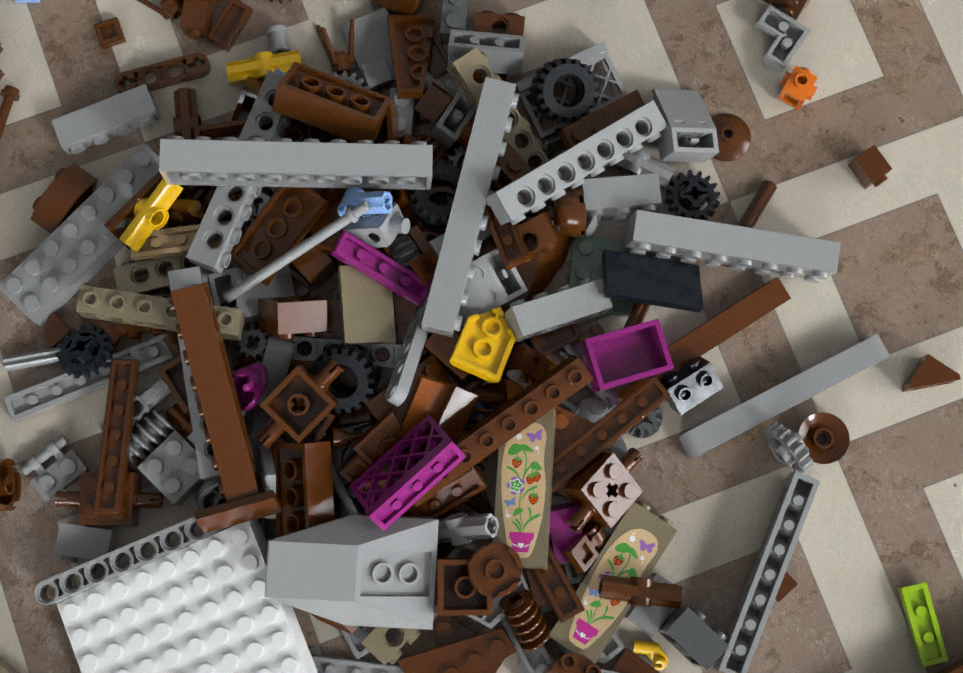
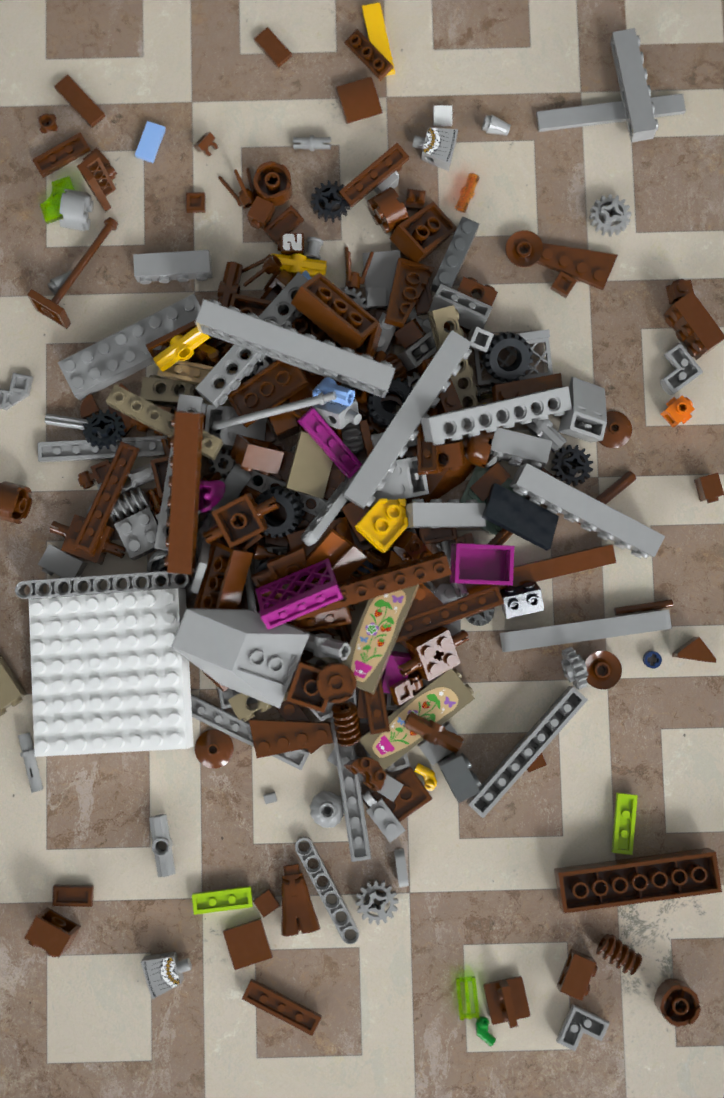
camera: 20 degrees right, 5 degrees up
(58, 475) = (60, 509): light grey plate -> none
(63, 197) = (124, 313): reddish brown brick -> none
(96, 407) = (99, 471): none -> reddish brown plate
(161, 69) = (223, 245): reddish brown beam -> none
(231, 76) = (271, 266): none -> reddish brown plant
(238, 511) = (172, 580): reddish brown tile -> none
(247, 42) = (291, 243): none -> brick
(425, 266) = (362, 451): reddish brown tile -> none
(525, 78) = (480, 339): none -> light grey brick
(591, 259) = (482, 487): none -> reddish brown tile
(844, 342) = (643, 607): none -> reddish brown bar
(874, 398) = (655, 664): none -> dark blue bush

